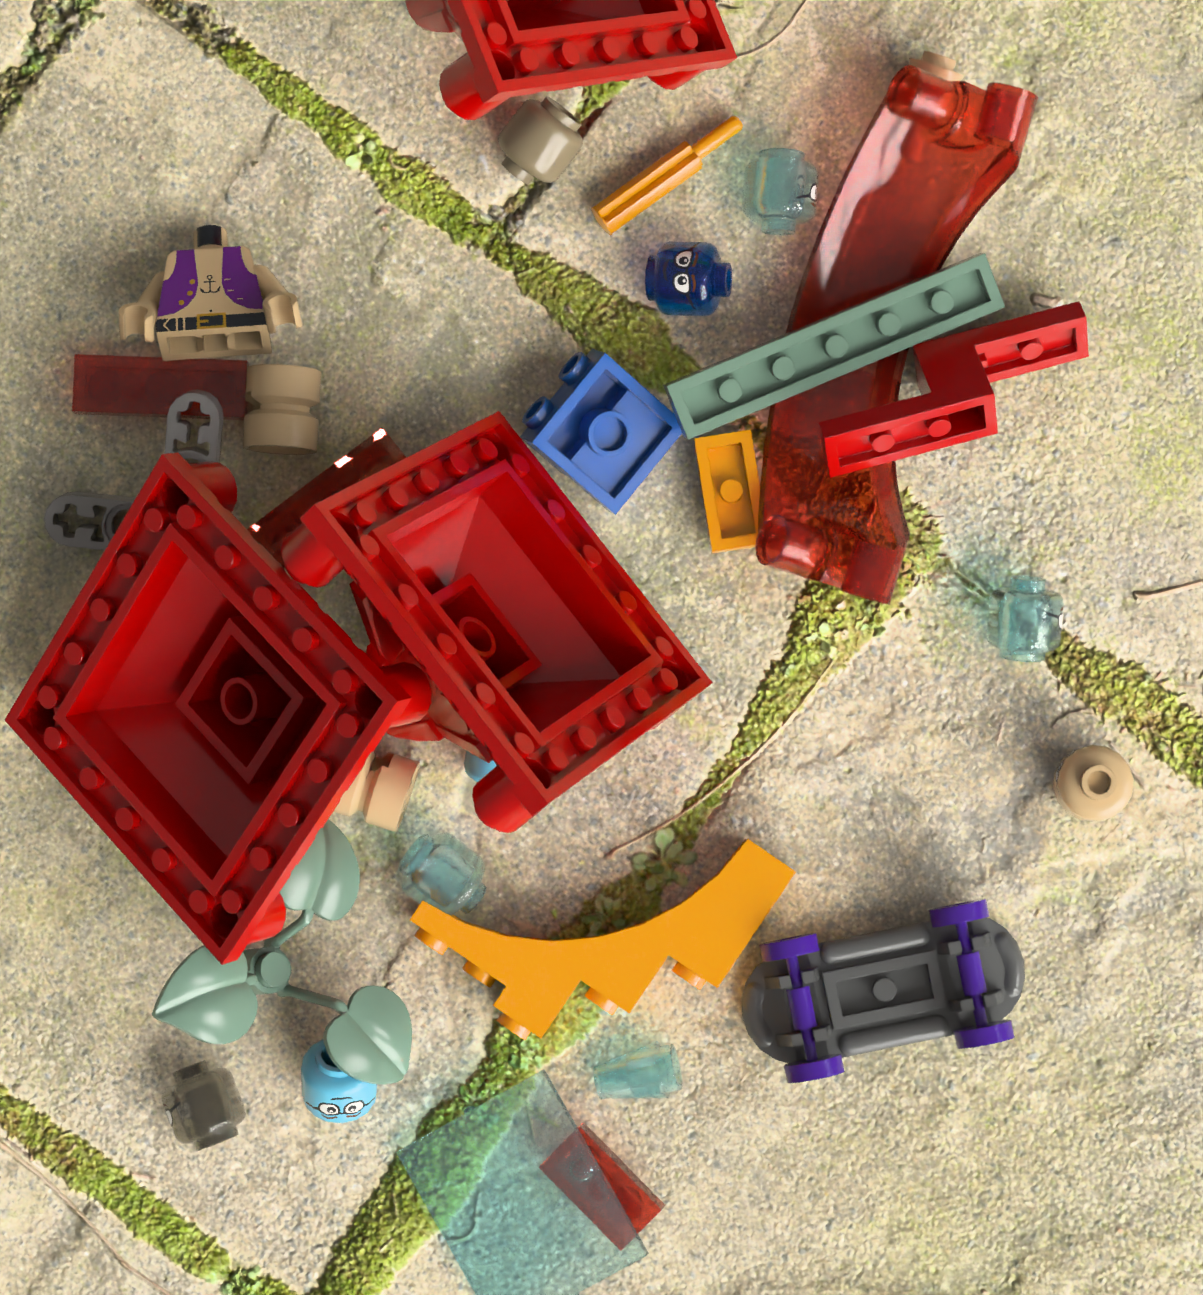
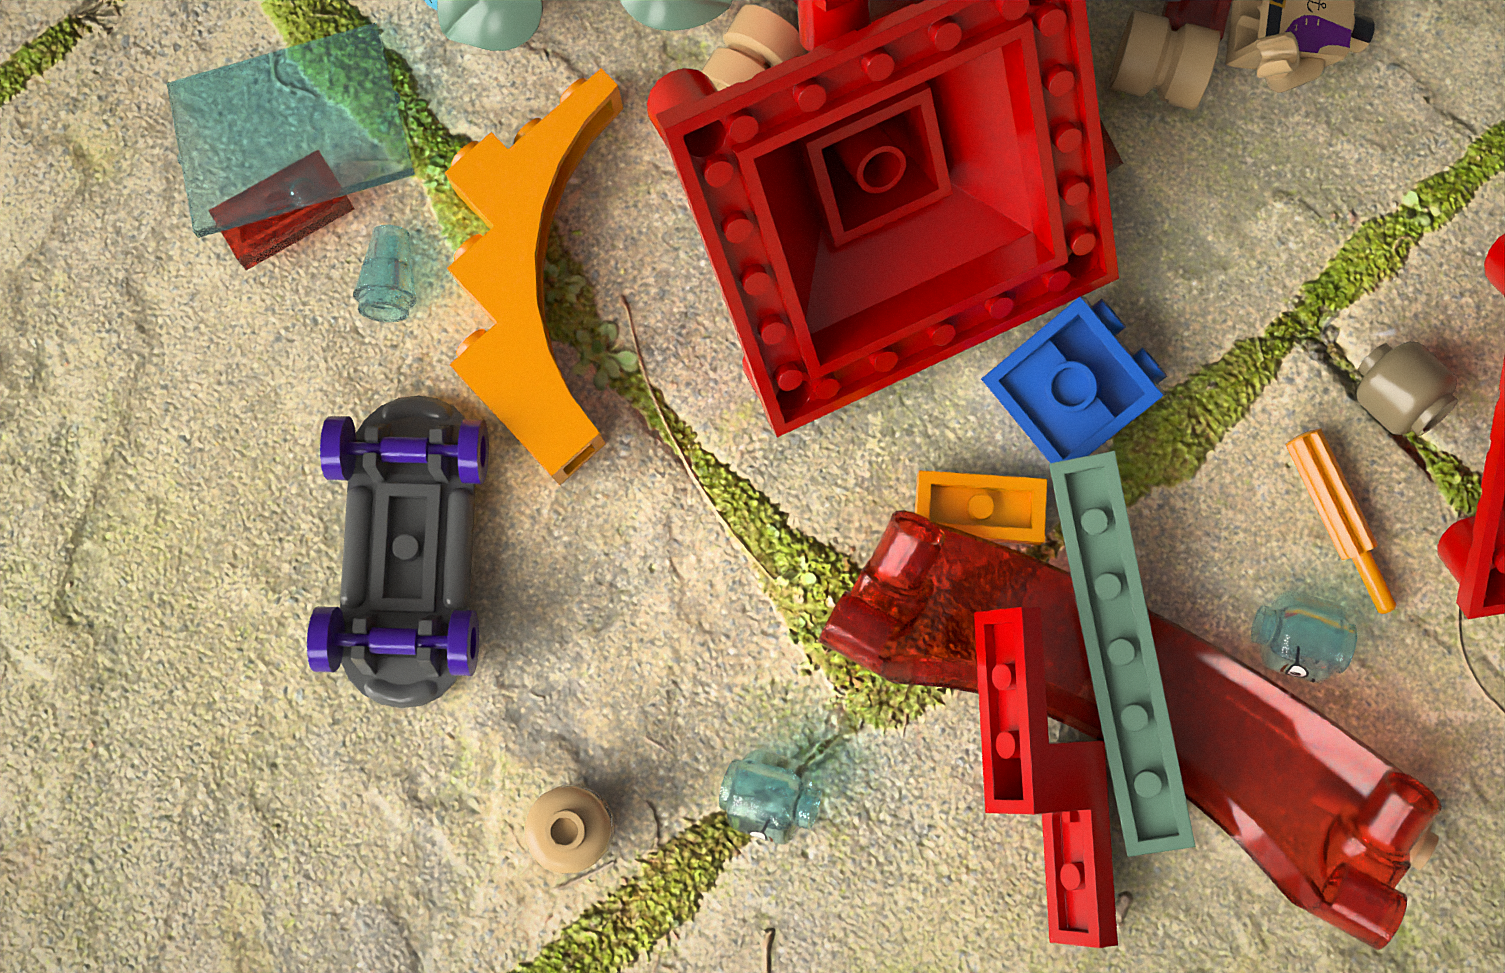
camera: 105 degrees right, 5 degrees down
(443, 873) = (626, 123): clear light blue head -> none
(687, 278) = (1224, 511): clear blue head -> none

